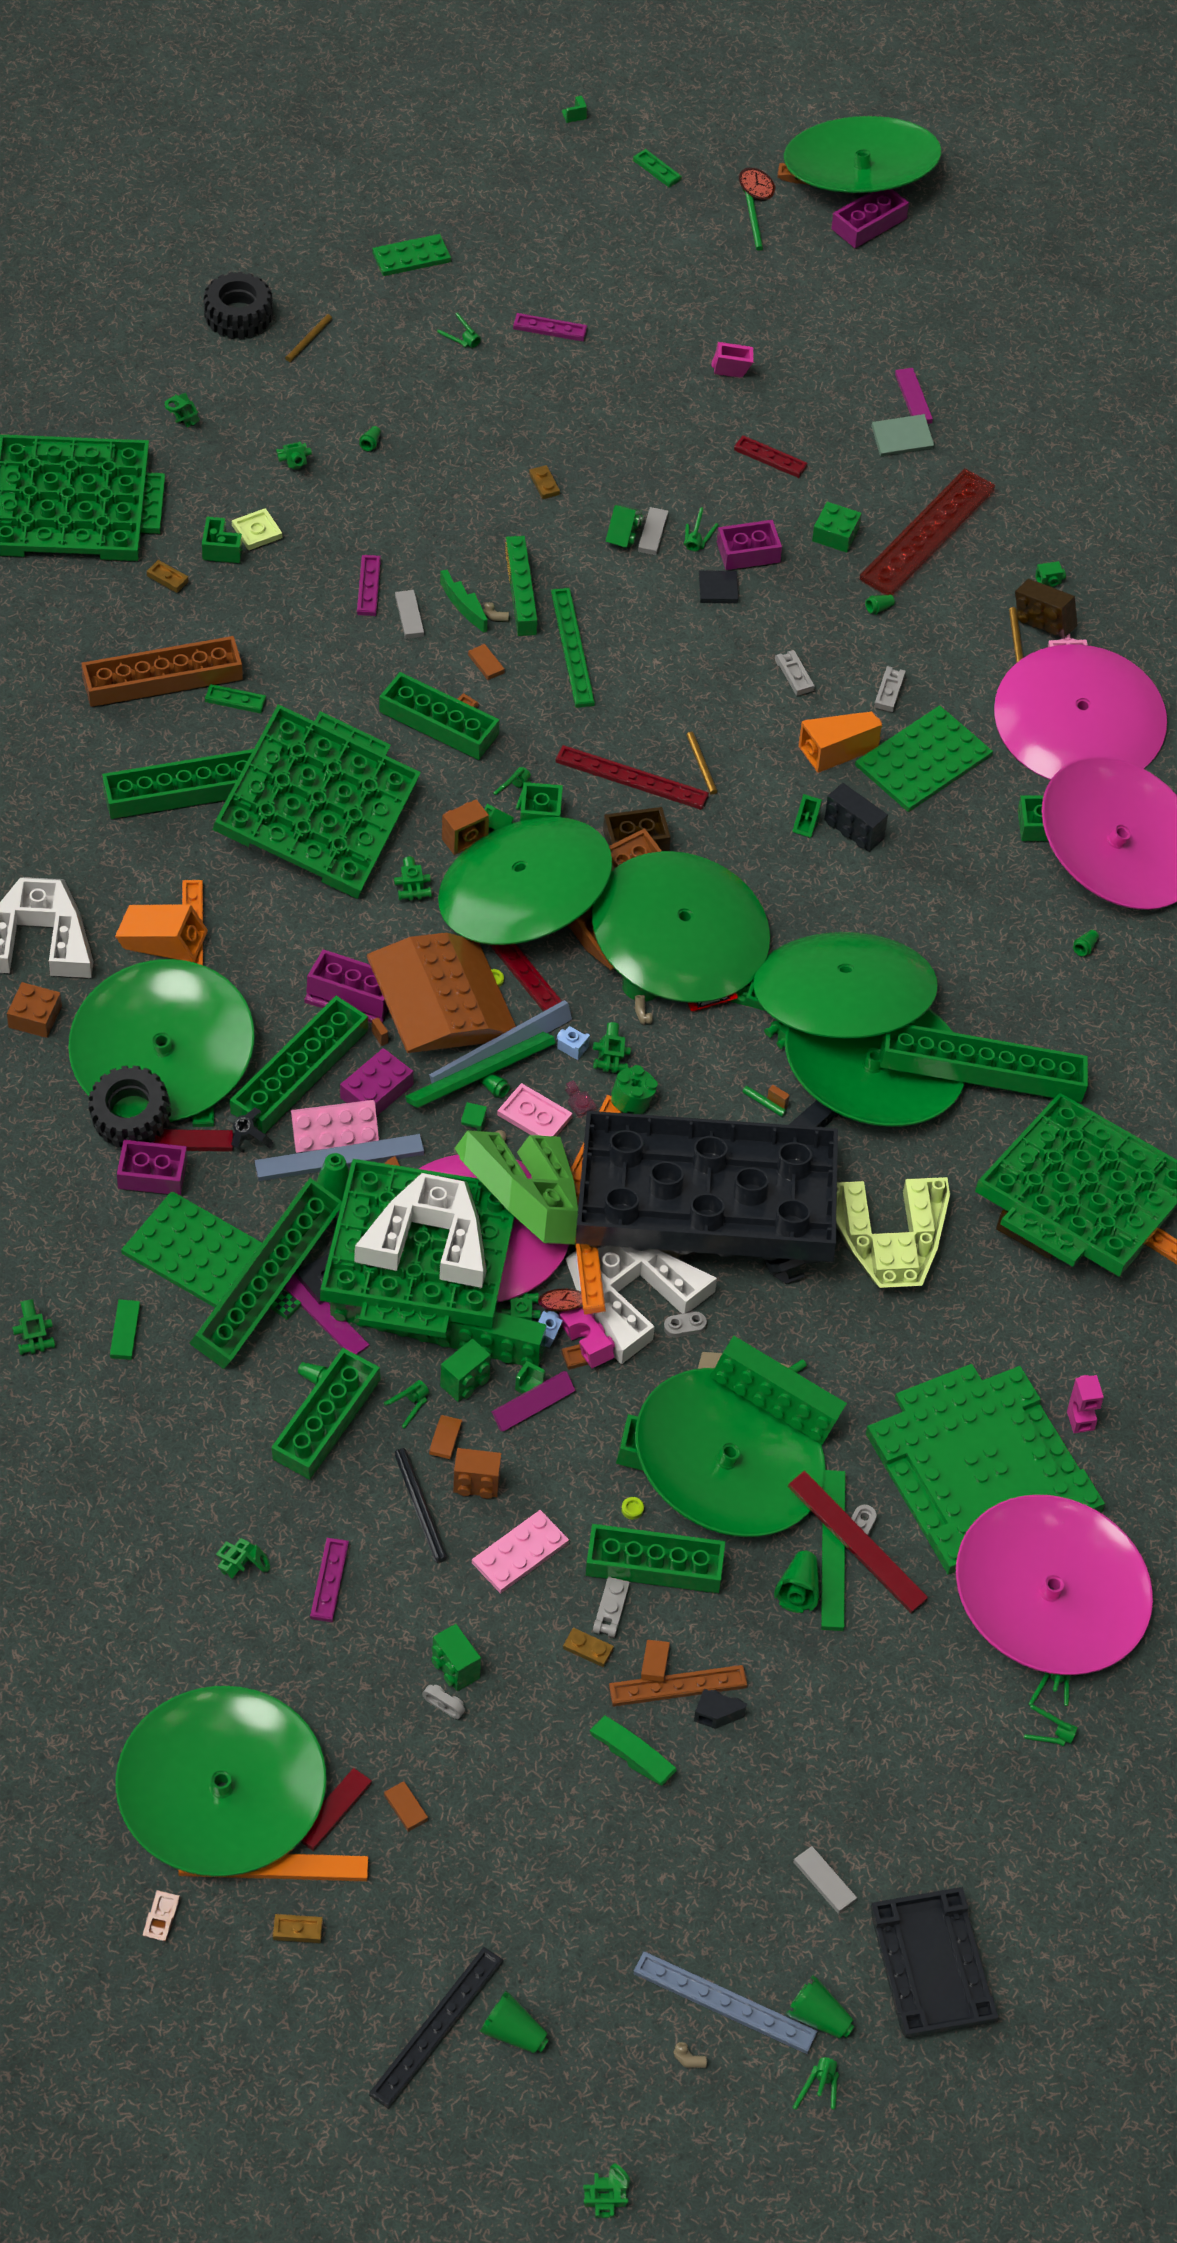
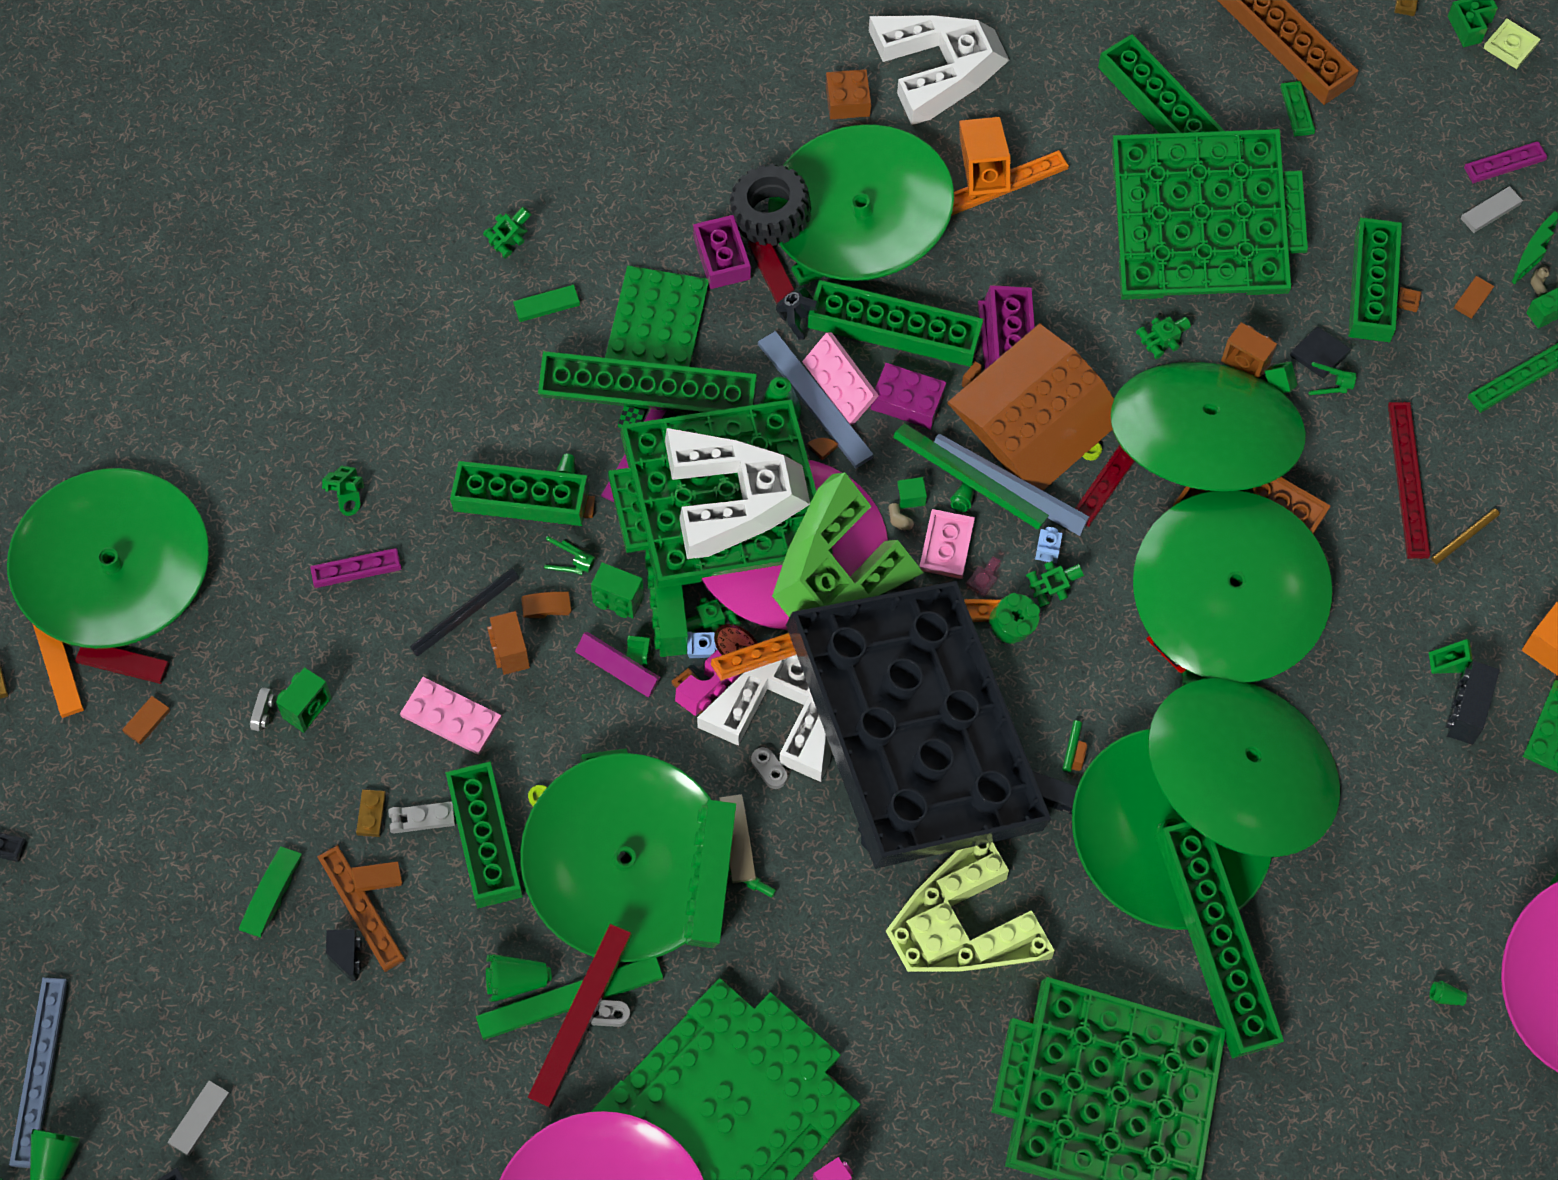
camera: 70 degrees right, 10 degrees up
(484, 783) = (1321, 349): none -> black tile
(541, 801) = (1318, 408): green brick -> none
(623, 824) = (1347, 510): dark brown brick -> none
(644, 1018) = (1115, 597): dark tan arm -> none

